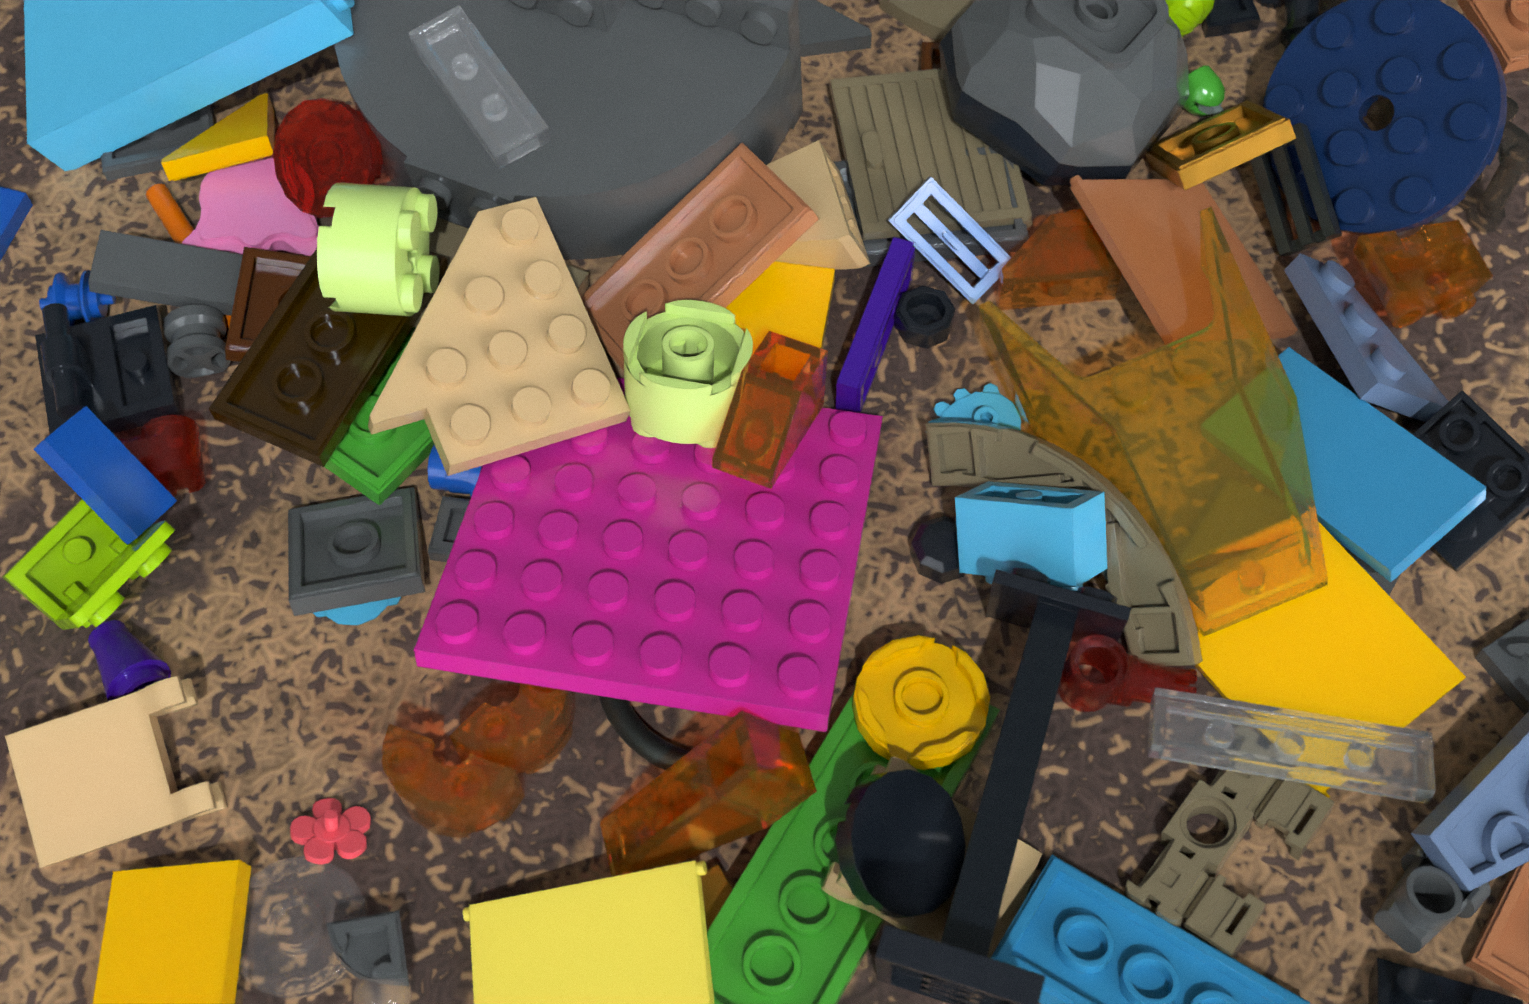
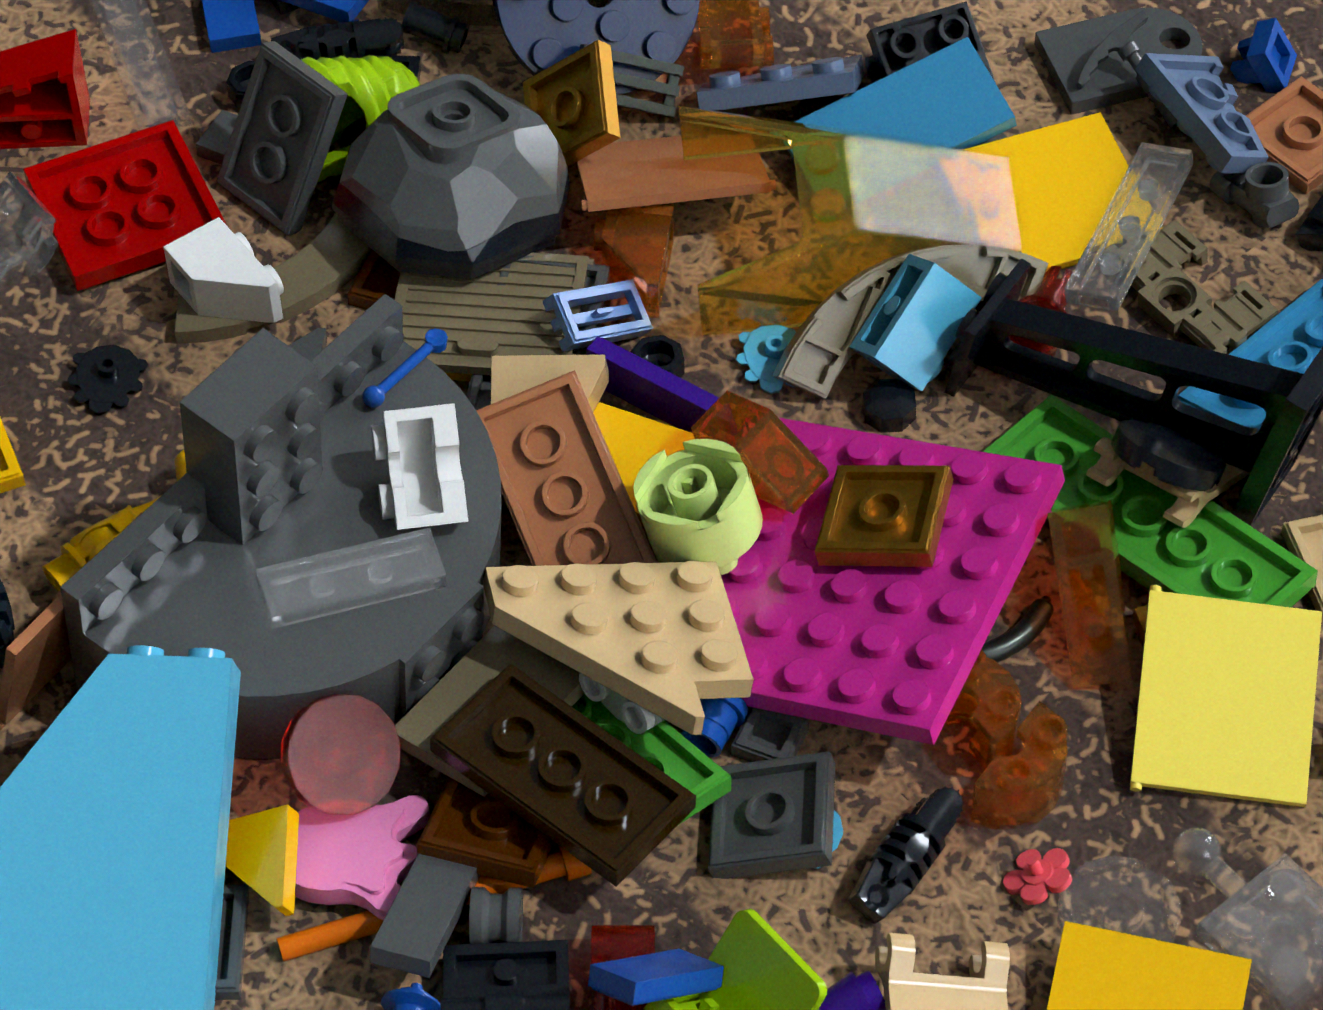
camera: 75 degrees left, 10 degrees down
(328, 687) = (906, 854): none -> black hinge
(371, 946) = (1158, 844): dark grey tile -> none
(377, 249) = (526, 675): yellowish green brick -> none
(606, 101) = (421, 467): none -> white cylinder
(715, 550) = (884, 515): none -> pearl gold tile
(795, 74) = (434, 343): none -> blue hinge
(921, 702) = (1039, 428): yellow tile -> none

